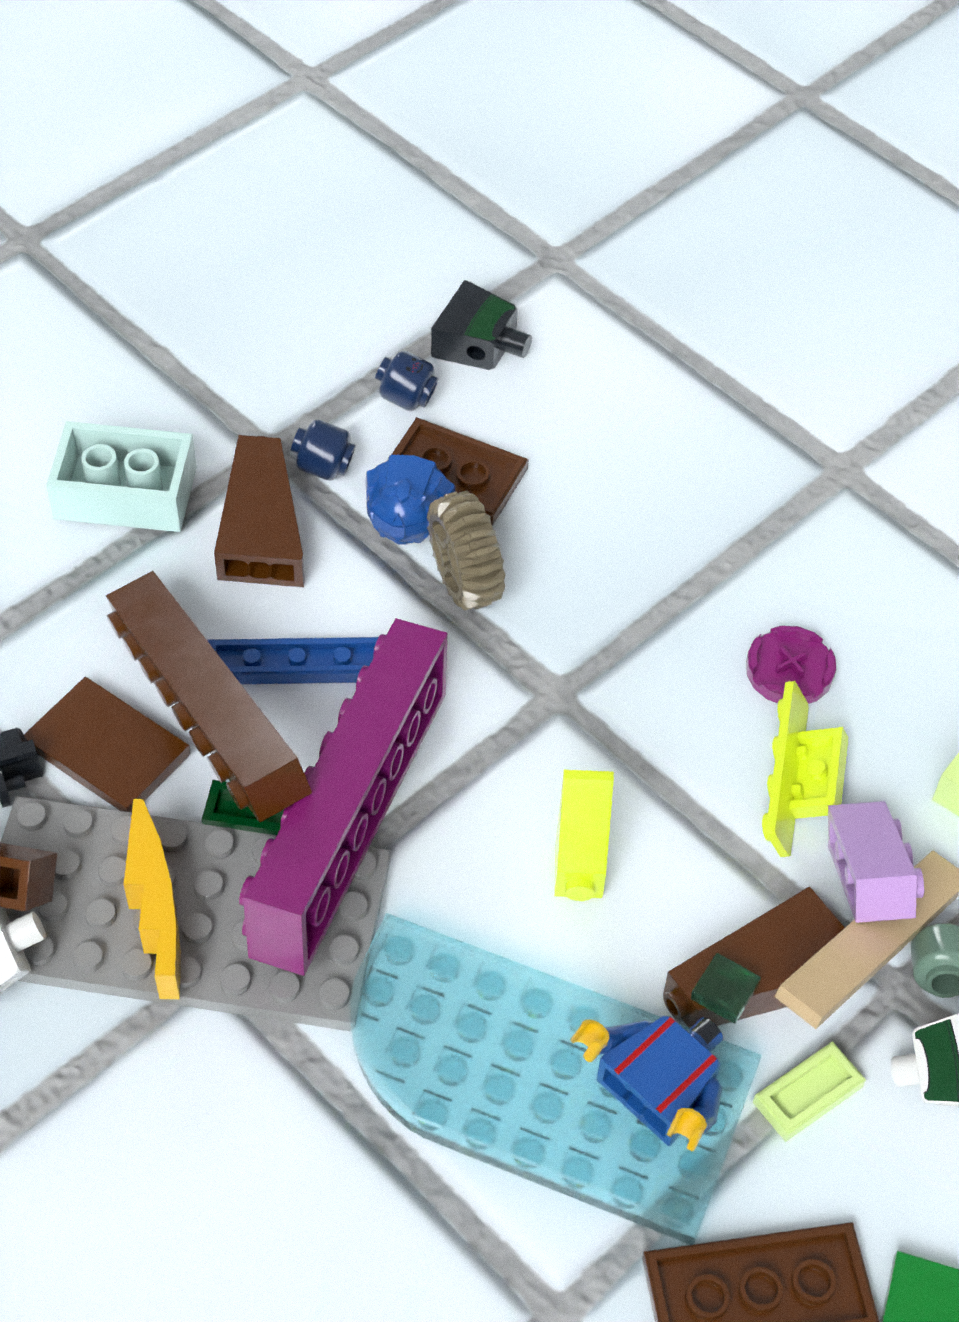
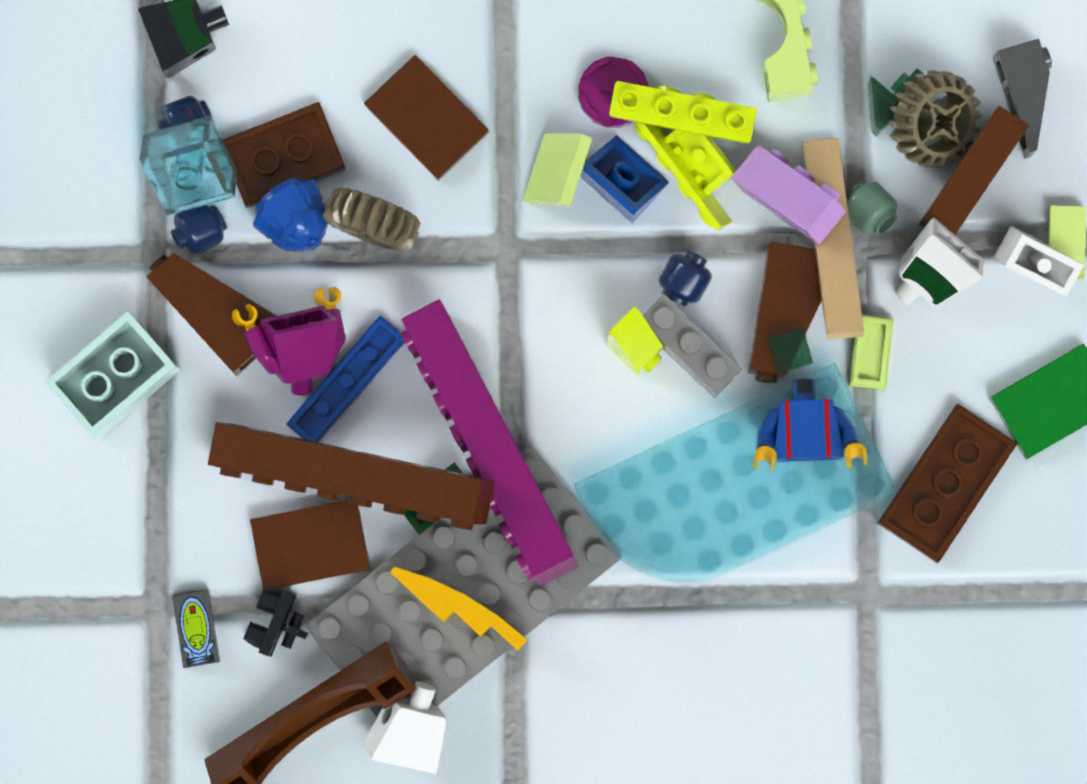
camera: 45 degrees left, 30 degrees up
(292, 581) = (297, 343): none -> magenta torso
(368, 390) = (188, 165): none -> clear light blue brick
(603, 546) = (426, 117): none -> reddish brown tile
(631, 908) = (691, 347): none -> light grey brick
(672, 659) = (557, 169): none -> yellowish green tile
(692, 850) = (685, 278): none -> dark blue head
(722, 727) = (623, 178): none -> blue slope
(840, 715) = (682, 112): none -> neon yellow bracket

